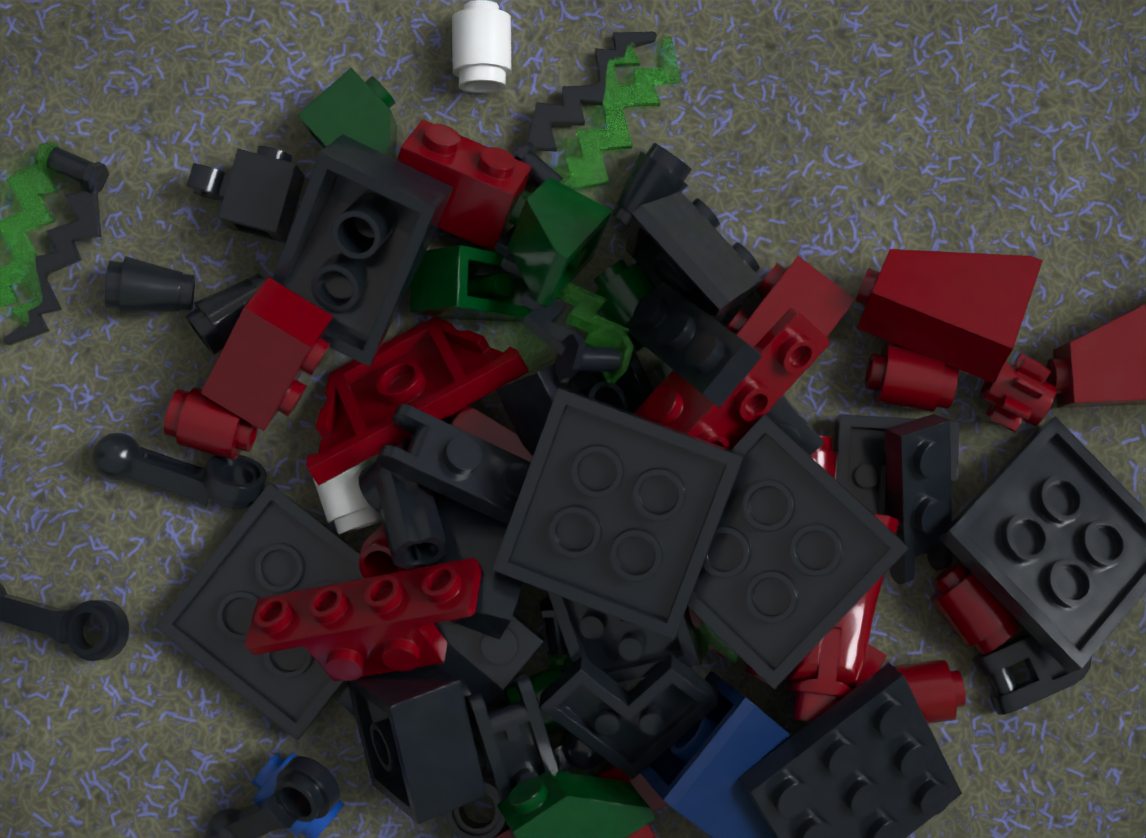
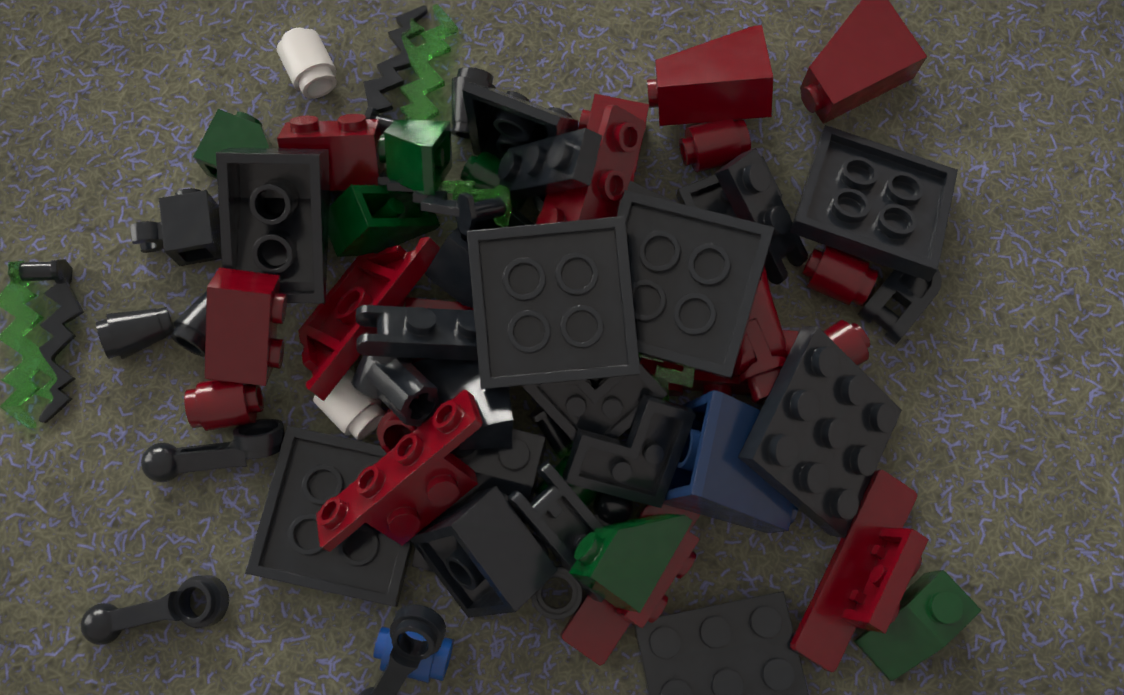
camera: 25 degrees left, 10 degrees down
(1019, 393) = (792, 119): dark red gear -> none

